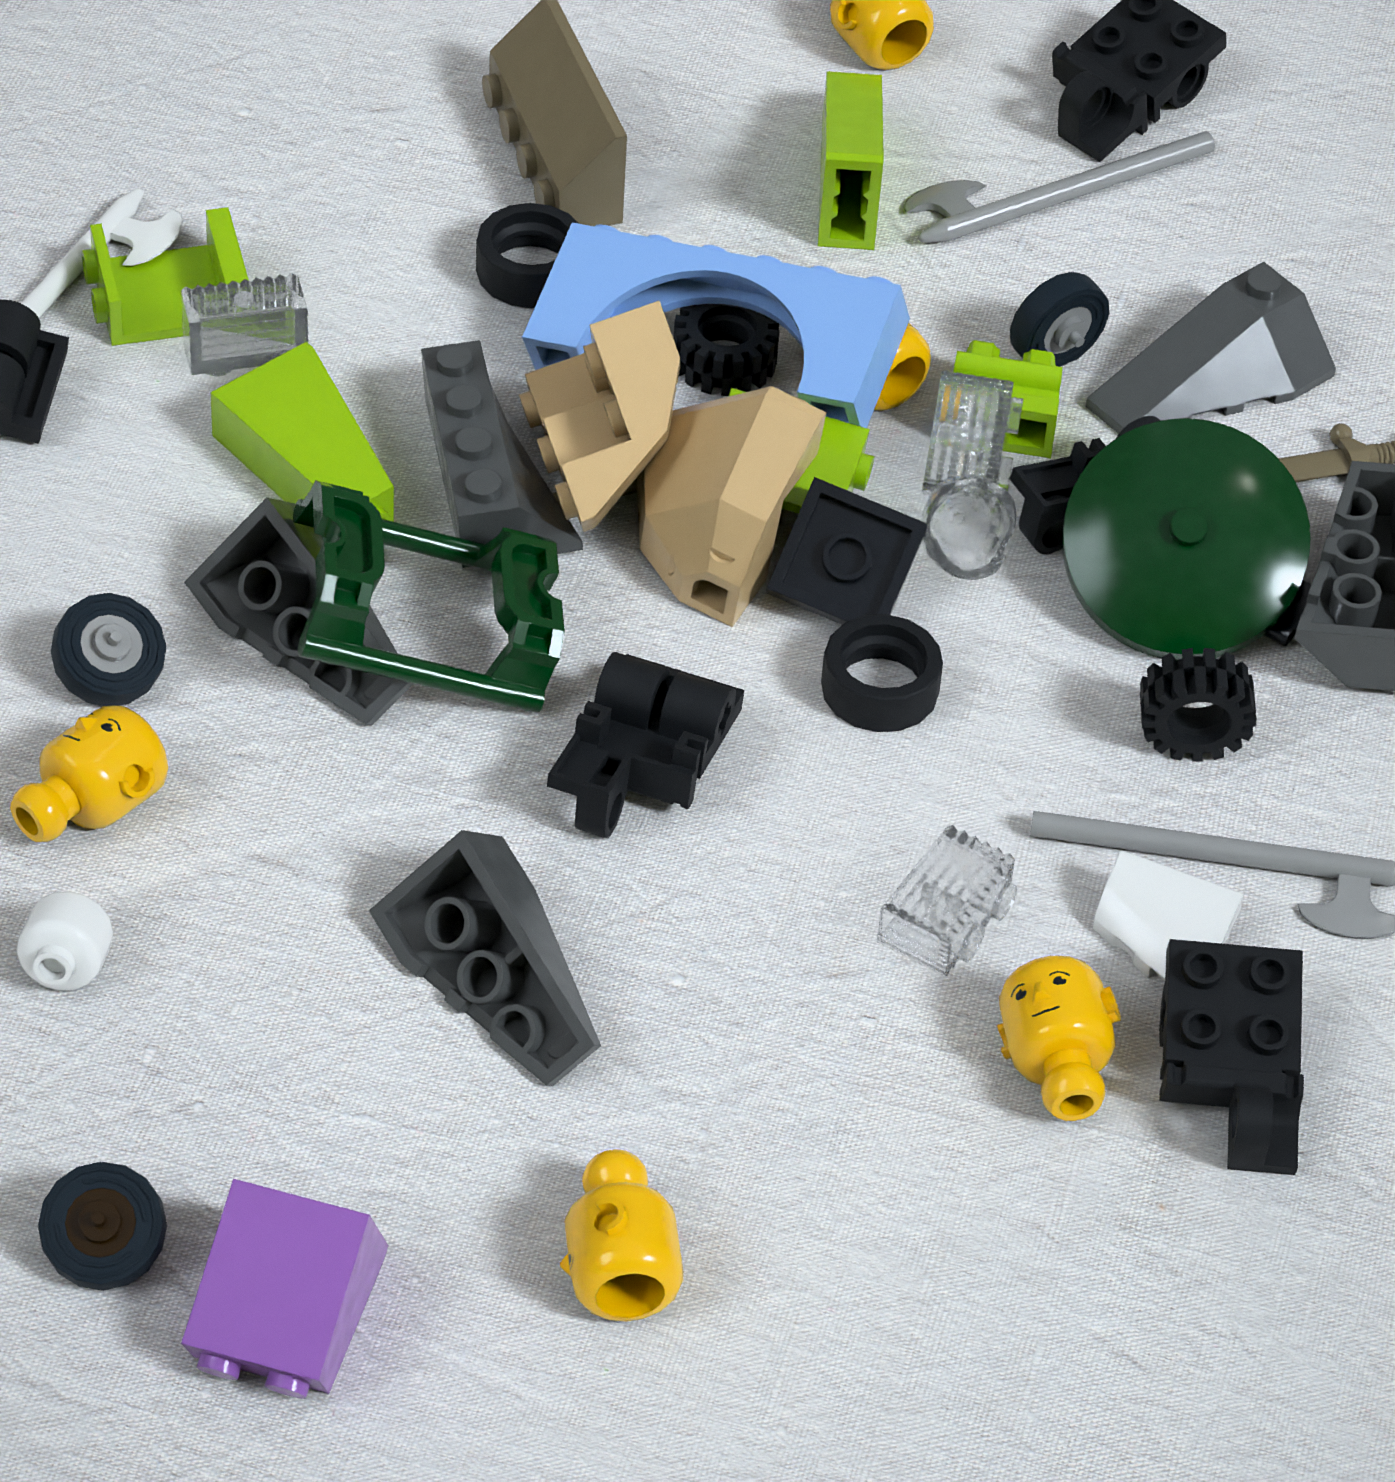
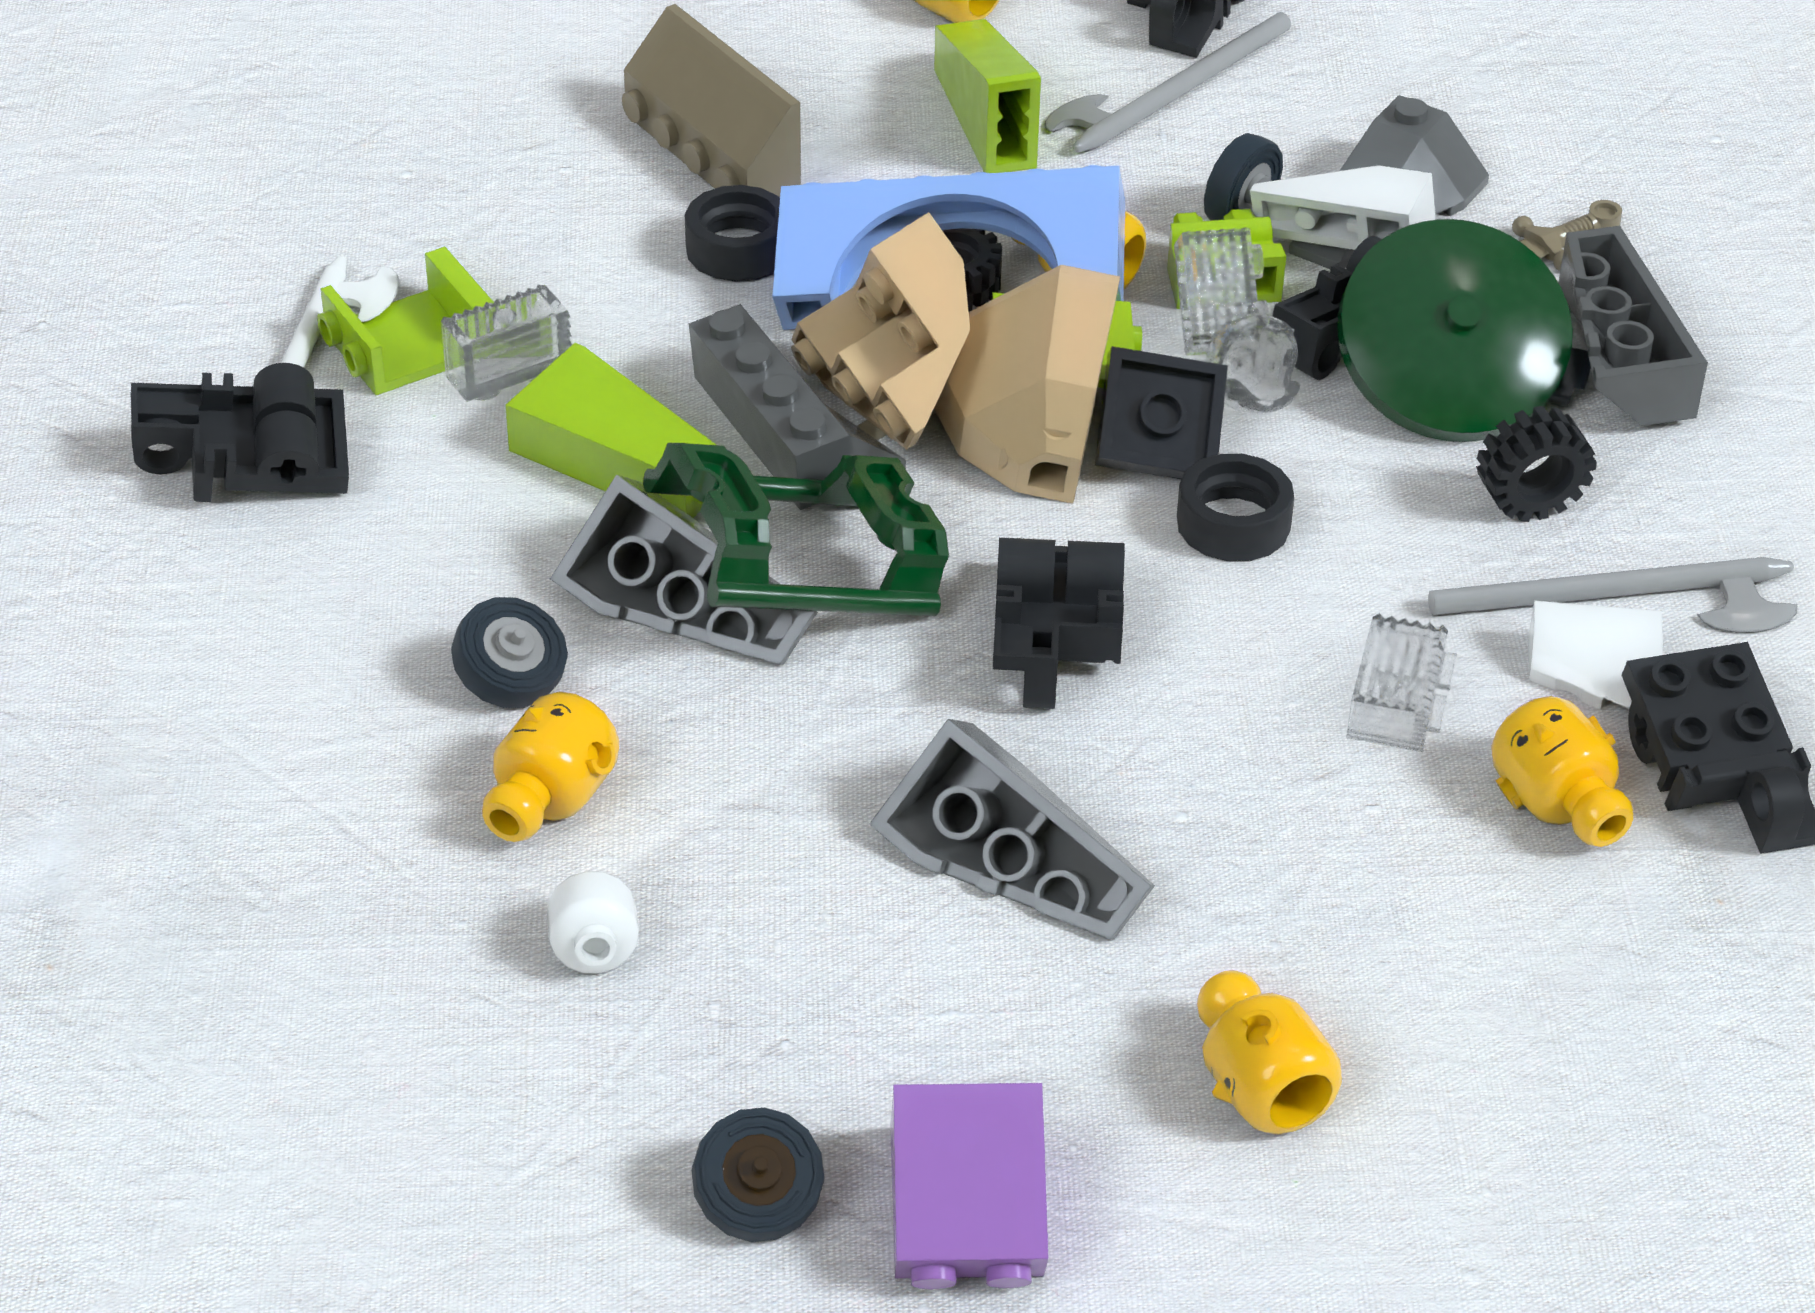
camera: 15 degrees left, 5 degrees down
(1149, 374) = (1345, 204): none -> white slope

